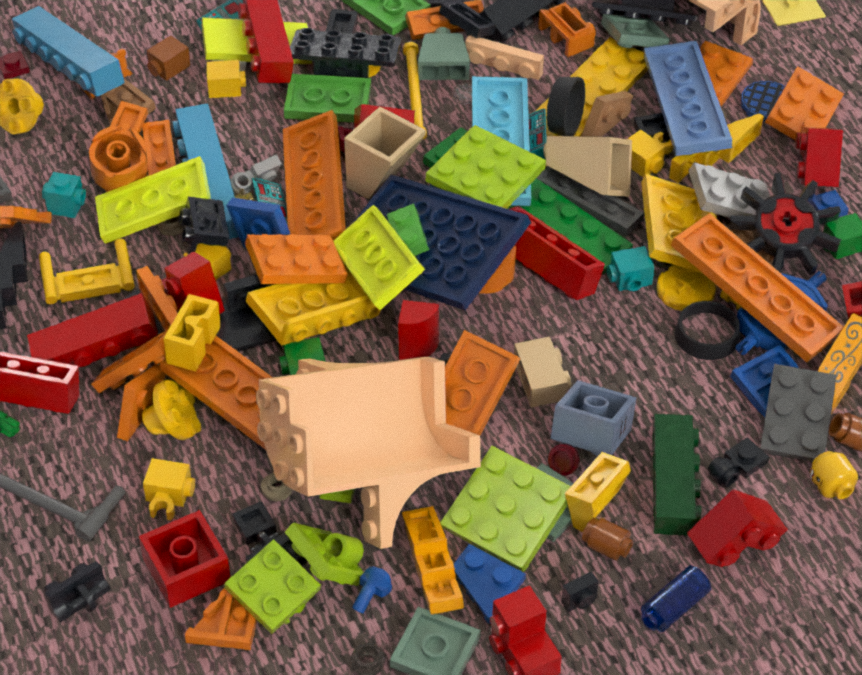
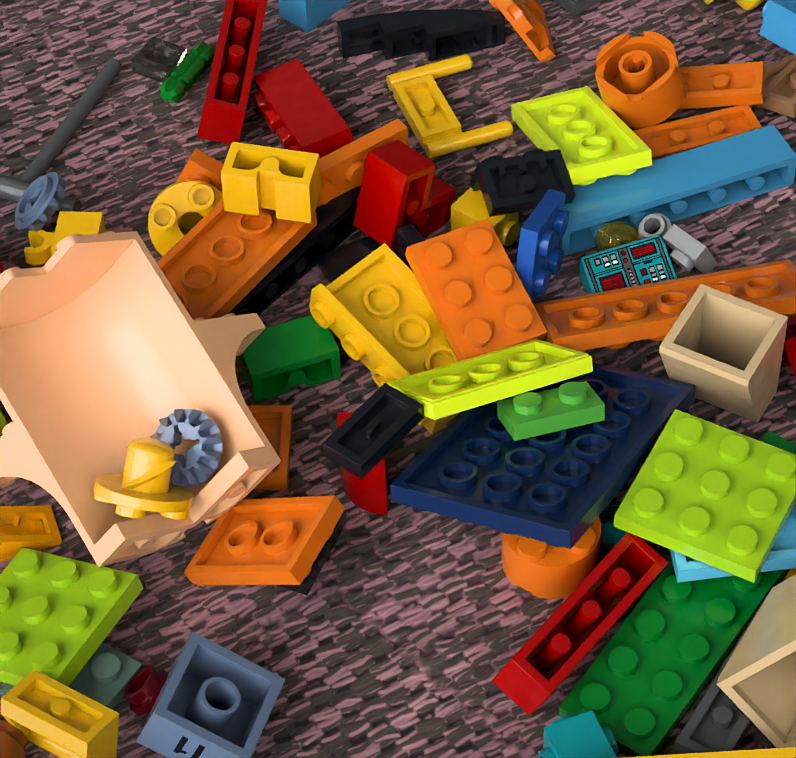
camera: 85 degrees right, 0 degrees up
(64, 194) = (577, 45): teal brick -> none
(111, 498) = (39, 202): none -> sand blue gear
(396, 411) = (203, 457): none -> sand blue gear
(426, 299) = (373, 430): none -> black plate
(434, 426) = (145, 483): none -> yellow plate
(541, 371) = (323, 642): tan brick -> none

